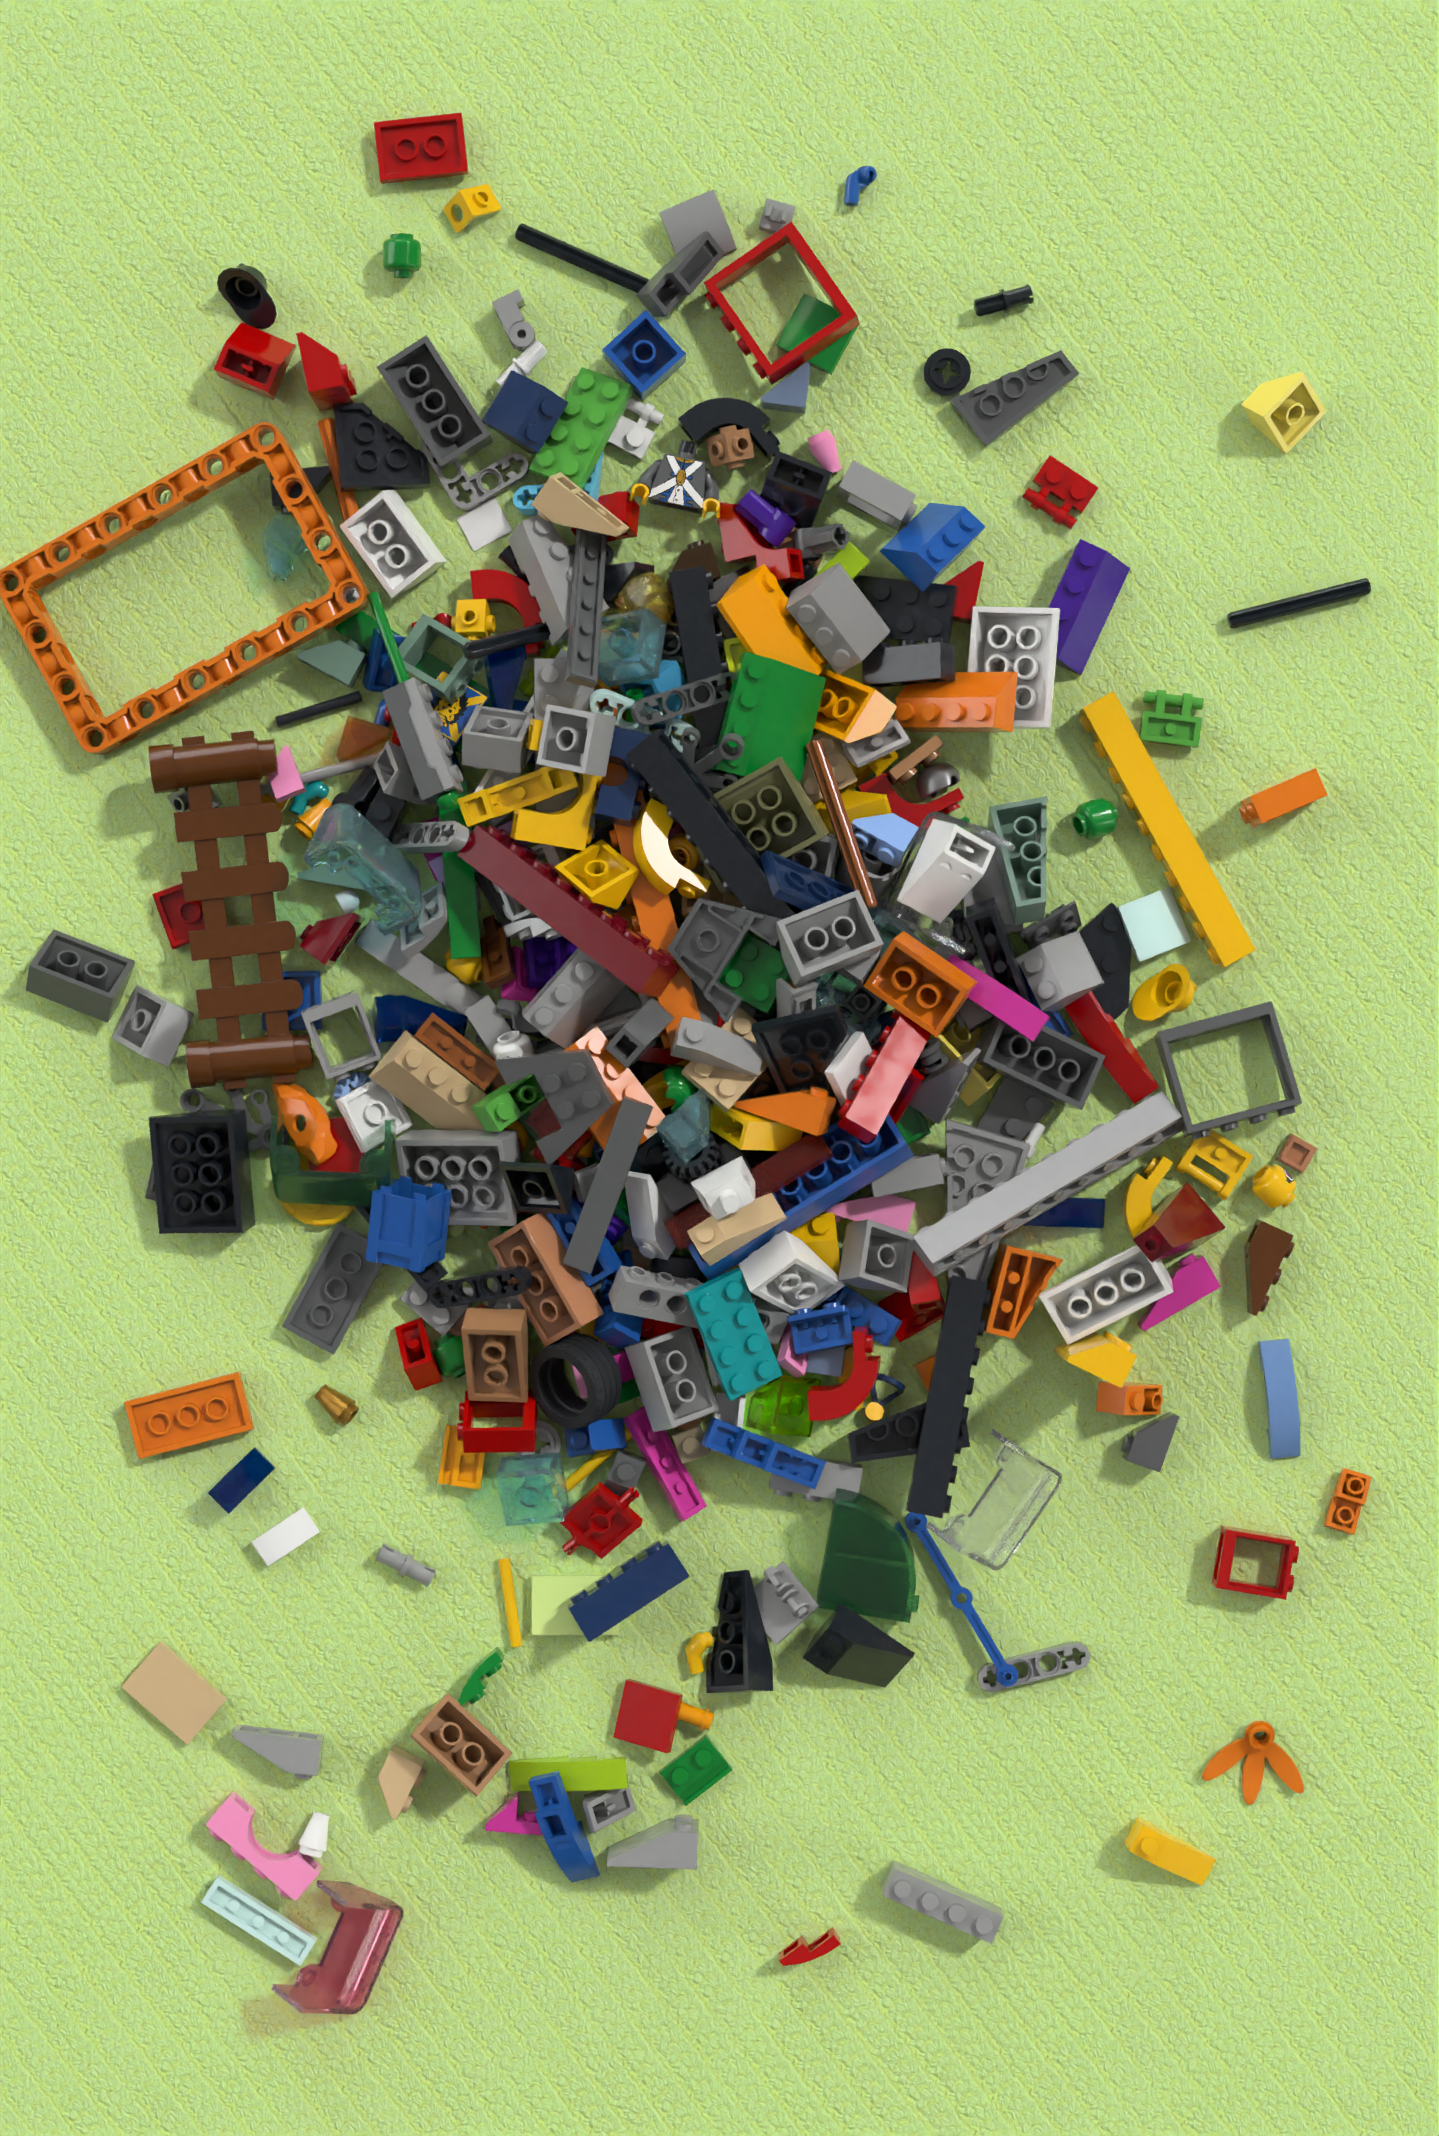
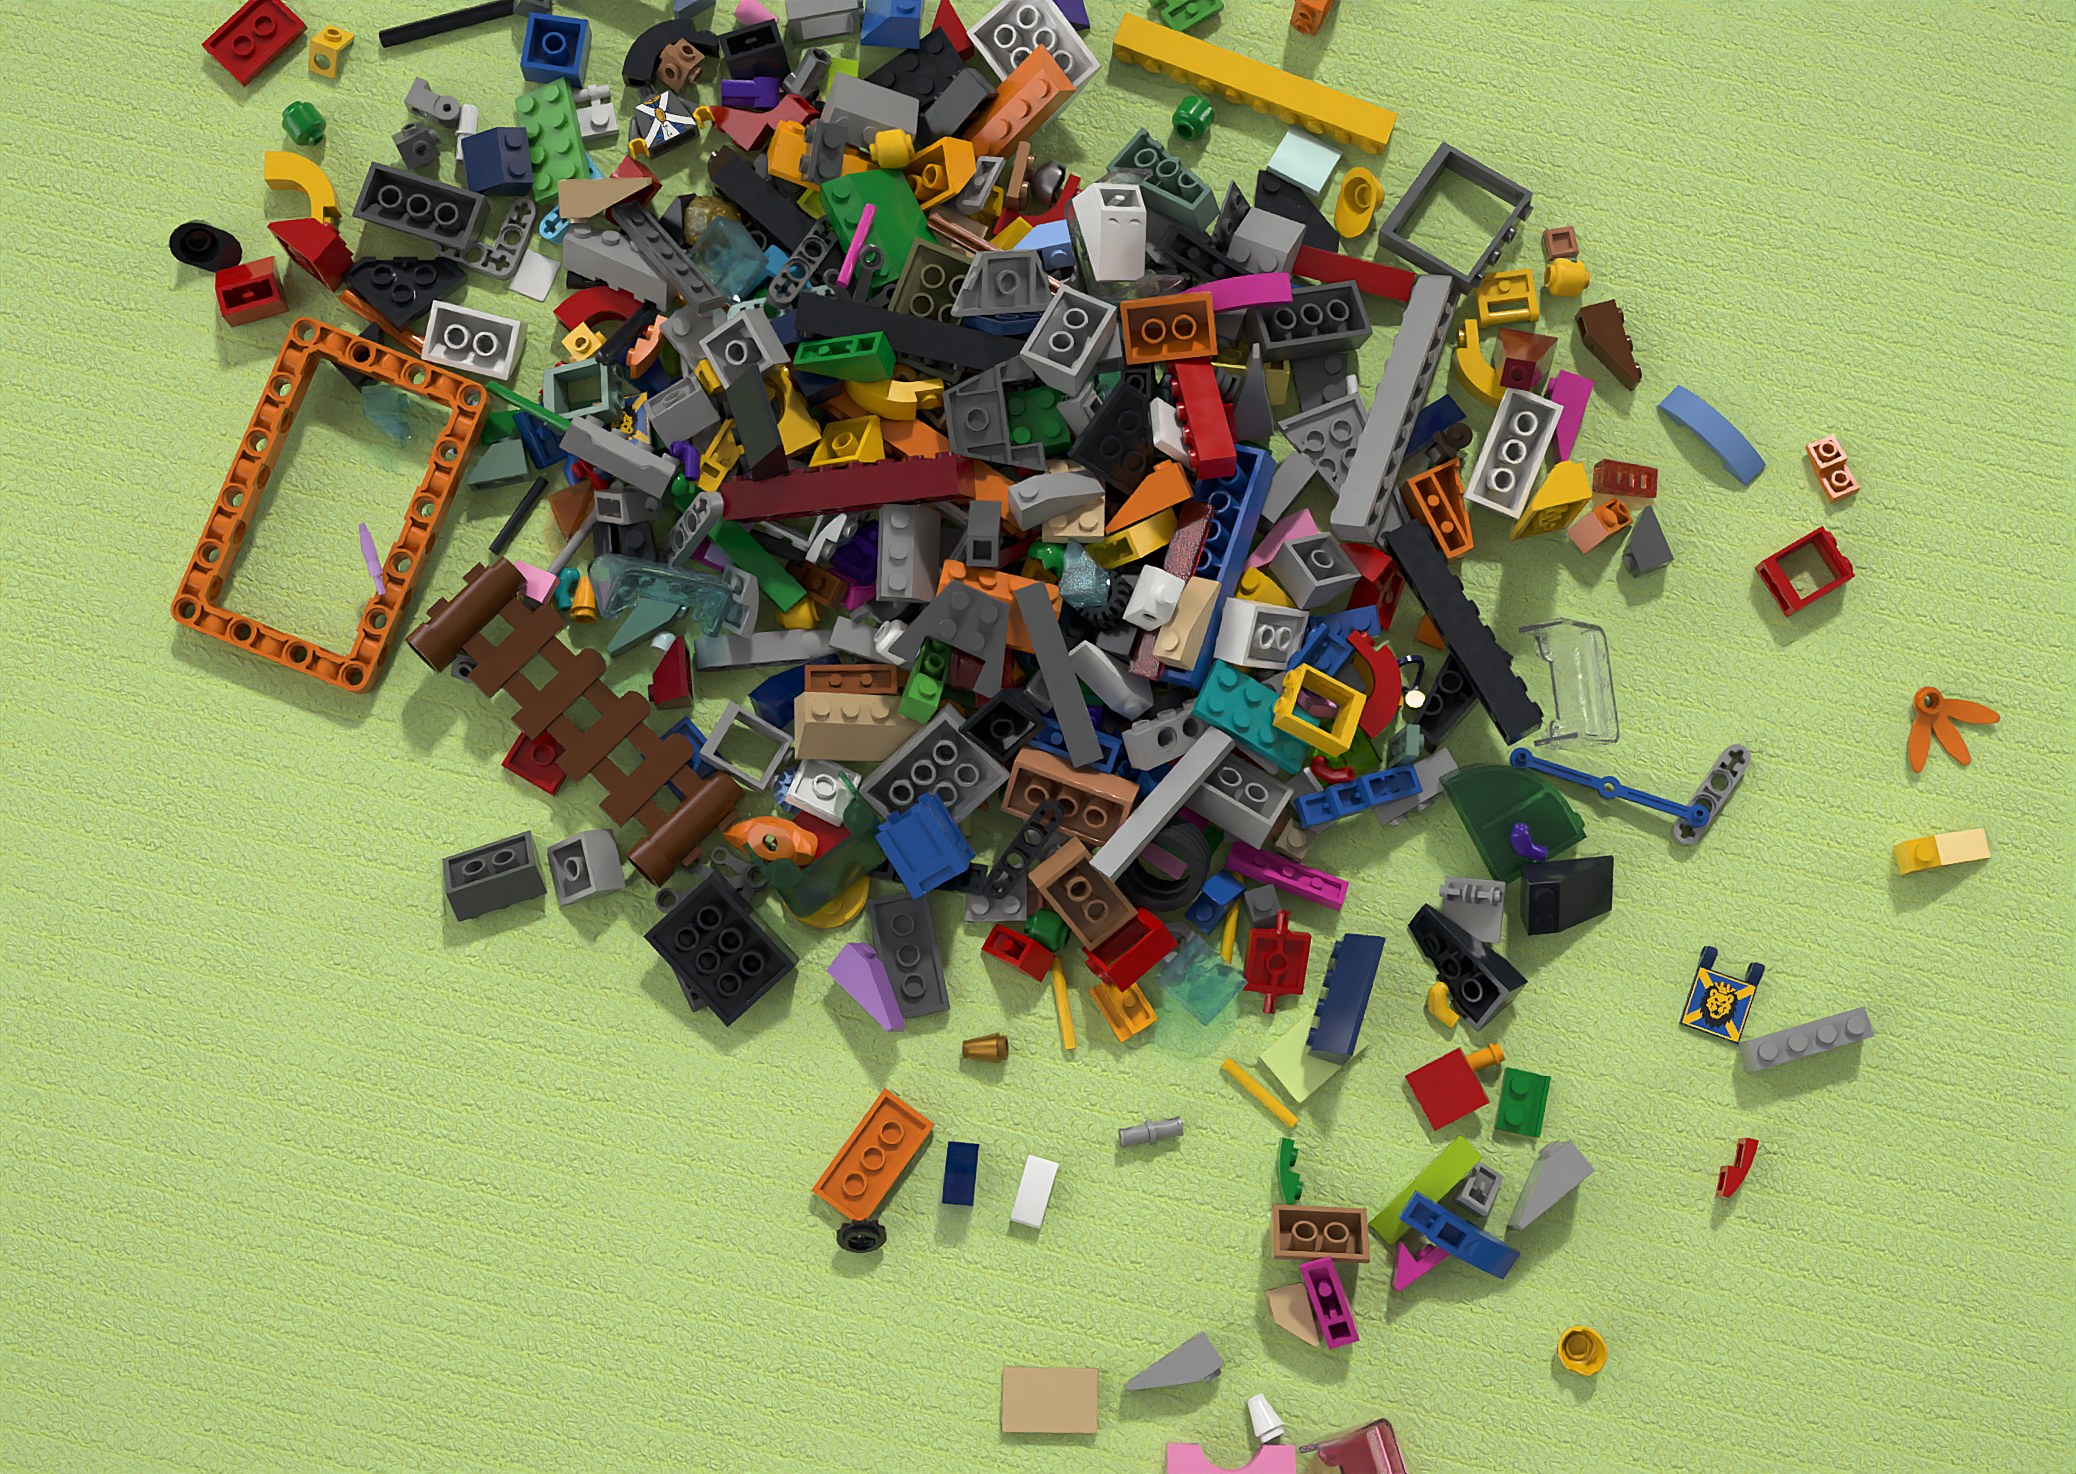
camera: 45 degrees left, 10 degrees down
(133, 1465) = (871, 1237): none -> black gear
(174, 661) = (369, 552): none -> lavender hand
(286, 1288) = (867, 982): none -> medium lavender slope
(372, 321) = (295, 172): none -> yellow arch
(420, 1419) = (1063, 1004): none -> yellow bar
(427, 1800) = (1330, 1302): none -> dark pink slope
(472, 784) = (689, 456): none -> dark purple arm
(474, 345) = (417, 144): none -> flat silver brick
(509, 667) = (646, 350): none -> orange slope
(533, 809) = (755, 426): none -> black slope
(583, 1980) = (1582, 1350): none -> yellow hair
(605, 1344) = (1162, 803): none -> light grey tile
(648, 811) = (852, 358): none -> green slope
(729, 726) = (856, 245): none -> dark pink bar
(755, 1420) = (1331, 776): none -> red arm
(771, 624) = (823, 152): none -> dark grey bracket
(798, 1392) = (1347, 718): none -> yellow window
(816, 851) = (1003, 284): none -> light grey wing
(828, 1446) = (1405, 746): none -> sand green plate
(830, 662) = (892, 149): none -> yellow head
(854, 1590) = (1523, 843): none -> dark purple arm
(905, 1820) = (1718, 1001): none -> flag
(1066, 1243) = (1449, 444): none -> dark brown hips
(1168, 1364) = (1606, 474): none -> clear red slope

